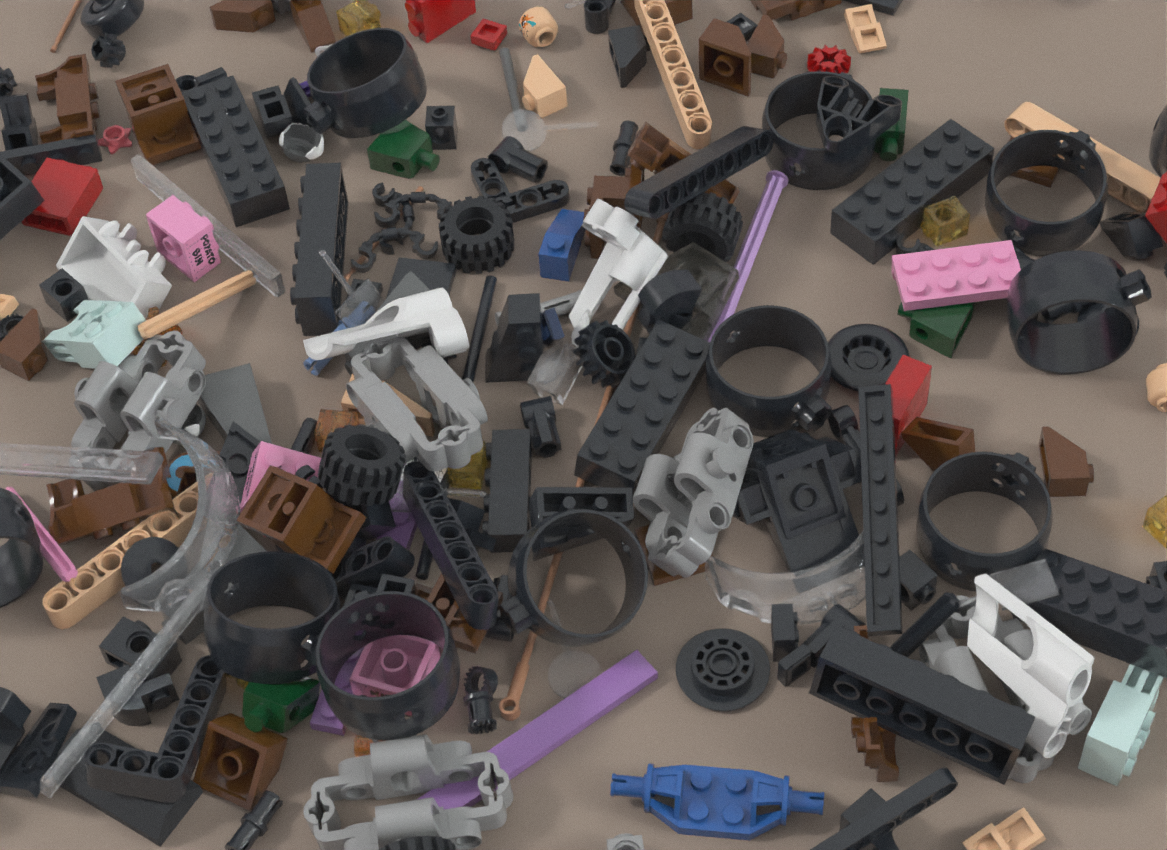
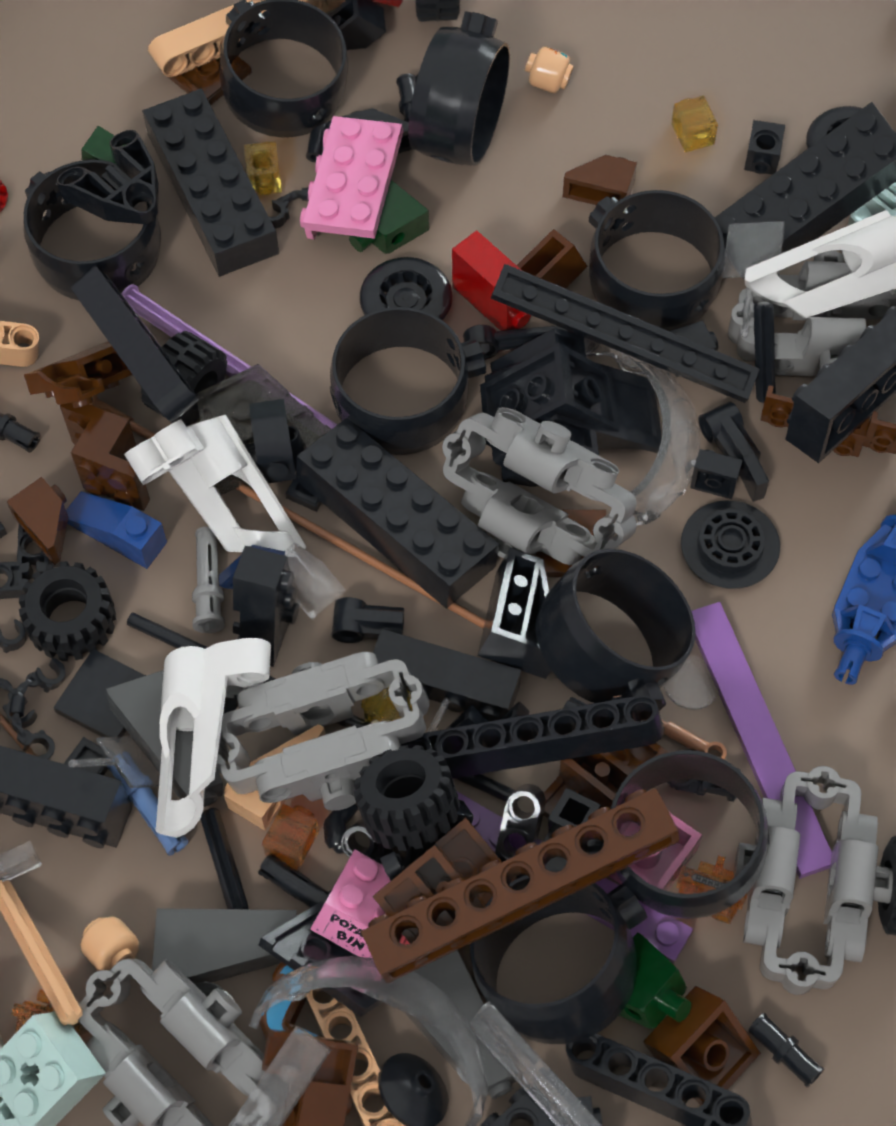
camera: 75 degrees left, 10 degrees up
(219, 348) = (108, 942): none -> light nougat head
(299, 549) = (510, 905): none -> reddish brown brick
(308, 400) = (223, 859): none -> black axle
(544, 190) = (42, 516): none -> reddish brown slope
(604, 353) = (312, 523): black gear -> none

